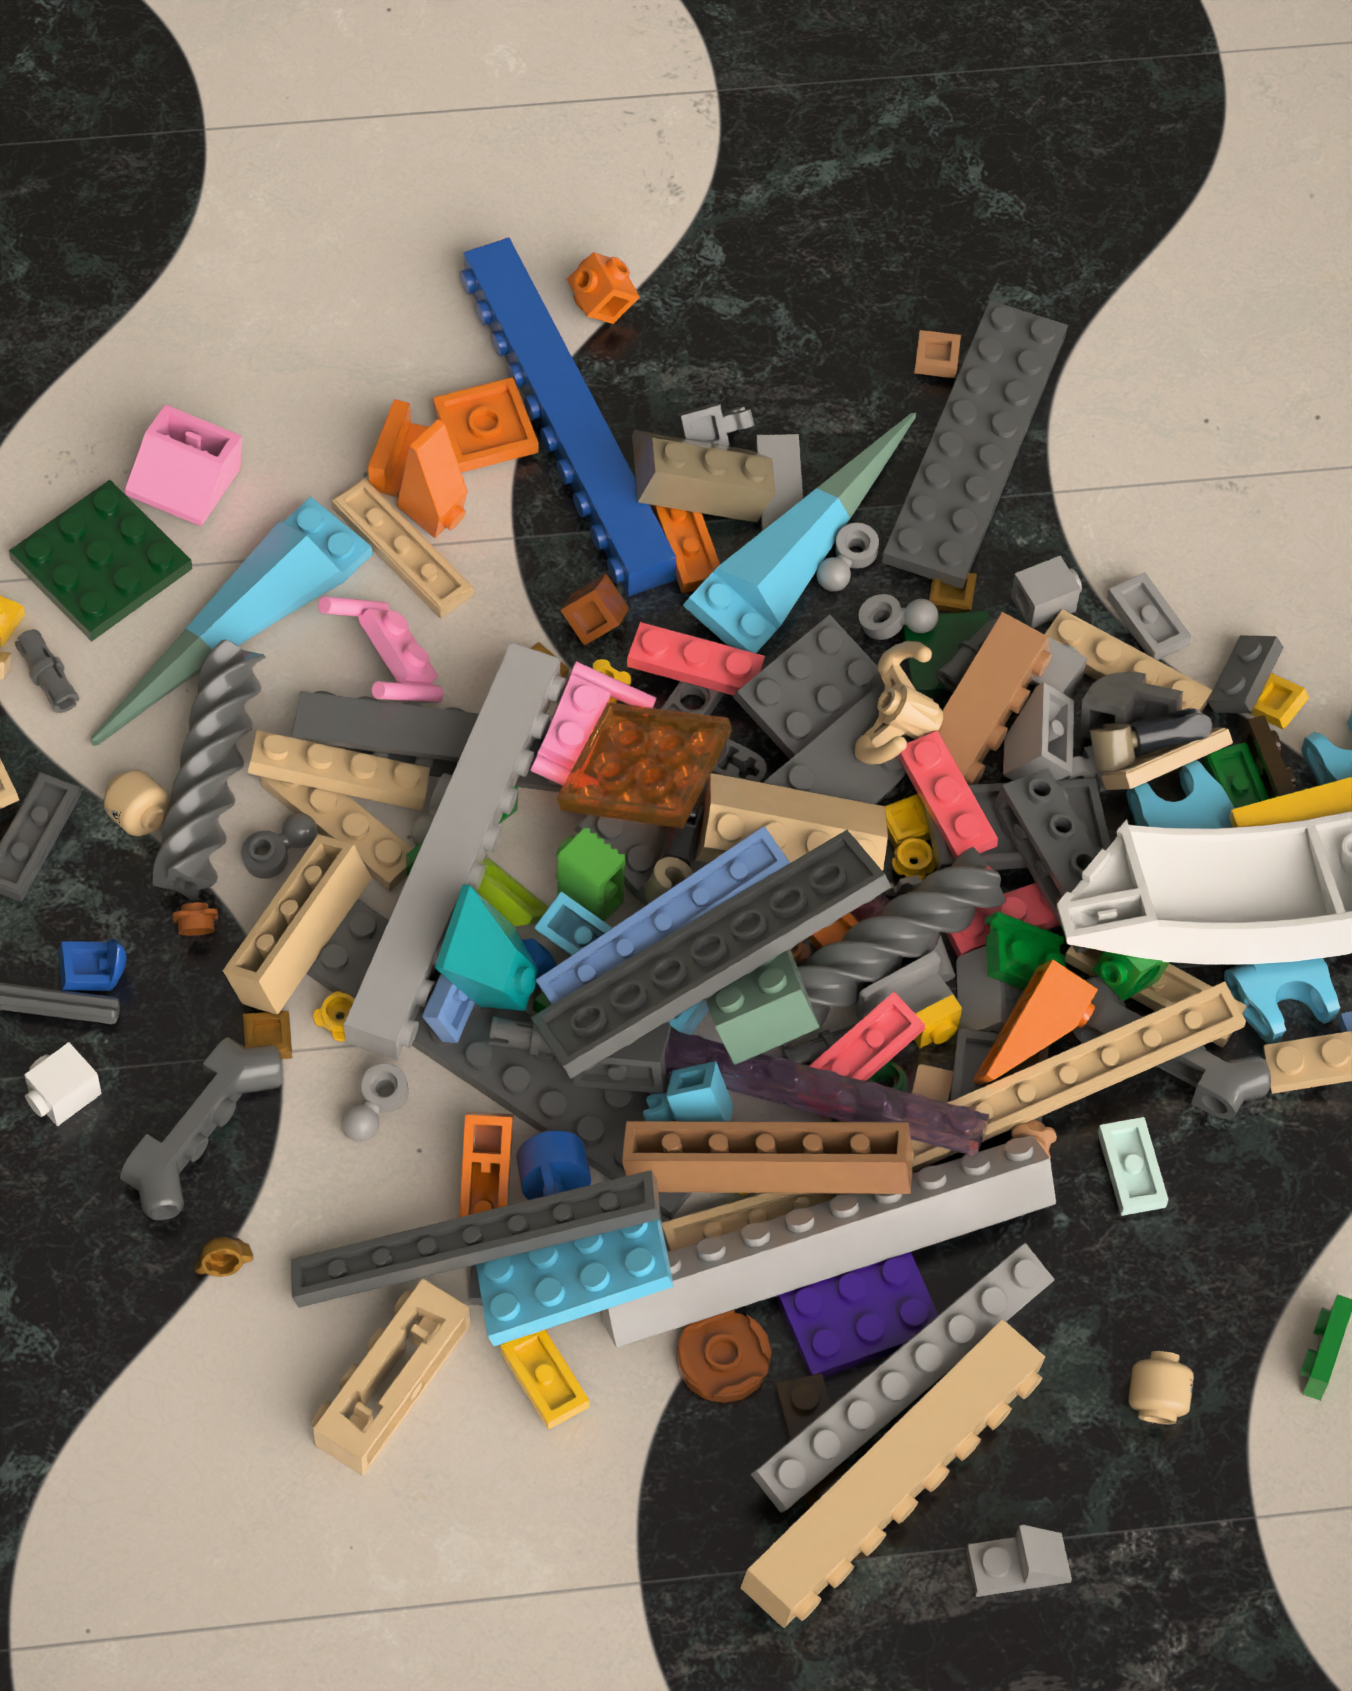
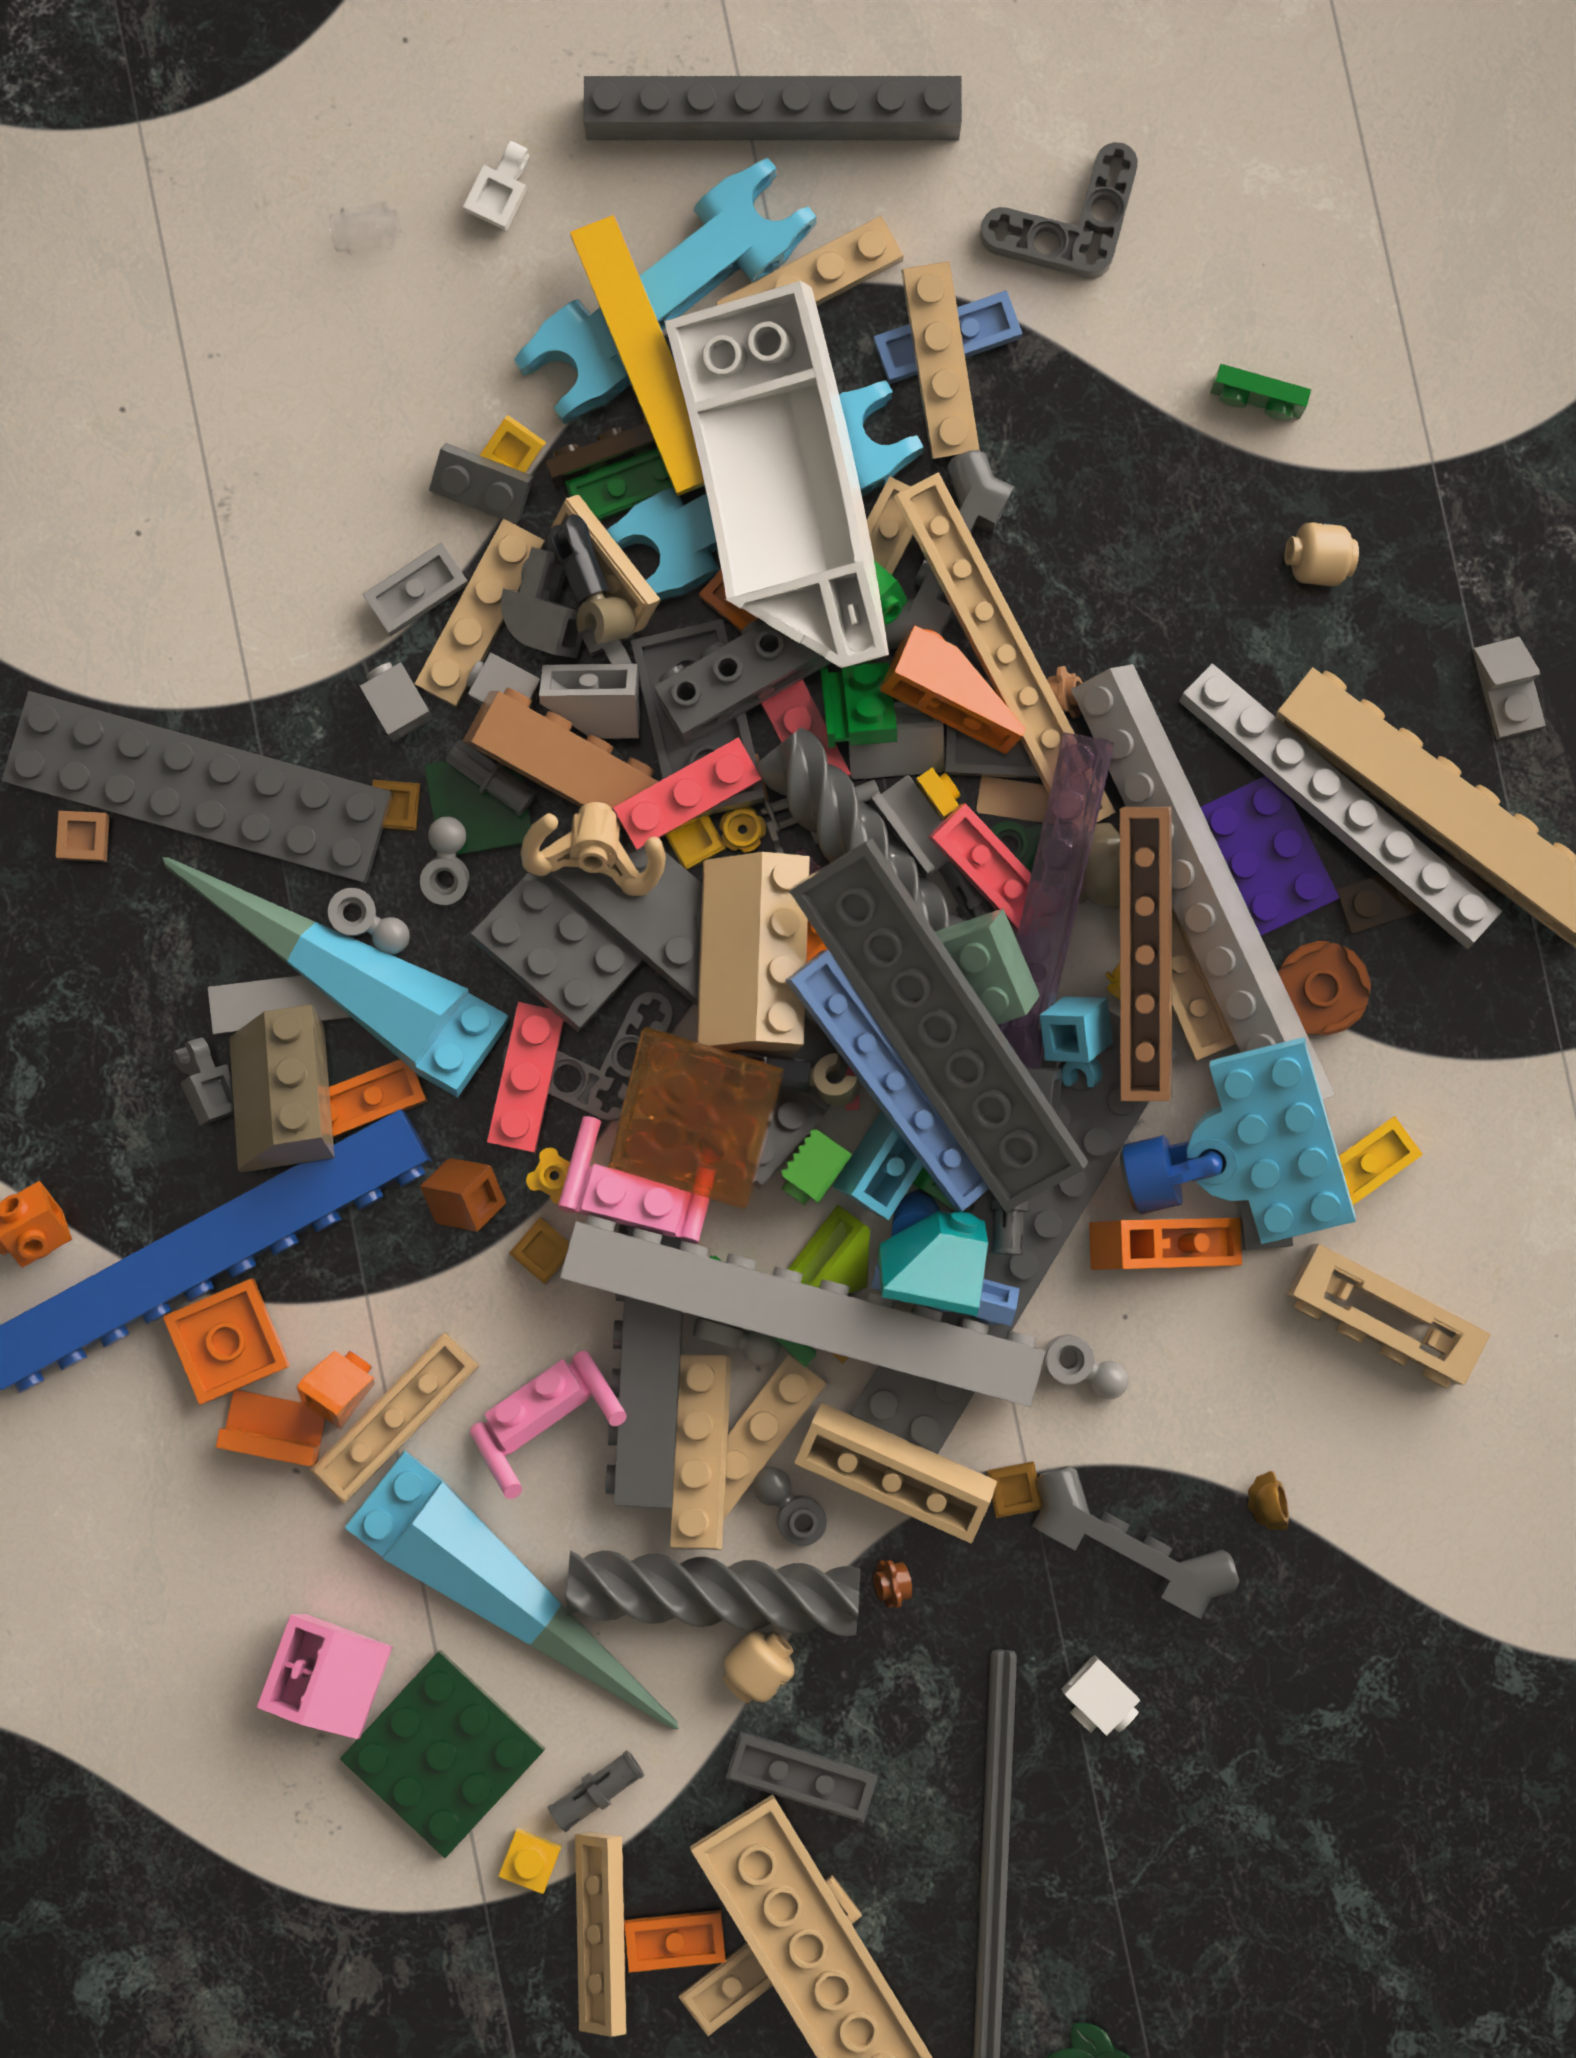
camera: 90 degrees left, 25 degrees up
(91, 965) = (958, 1687): blue plate -> none
(326, 1015) = (989, 1429): yellow plate -> none
(475, 1238) = (1256, 1242): dark grey plate -> none
(1132, 1166) = (1079, 589): light aqua plate -> none

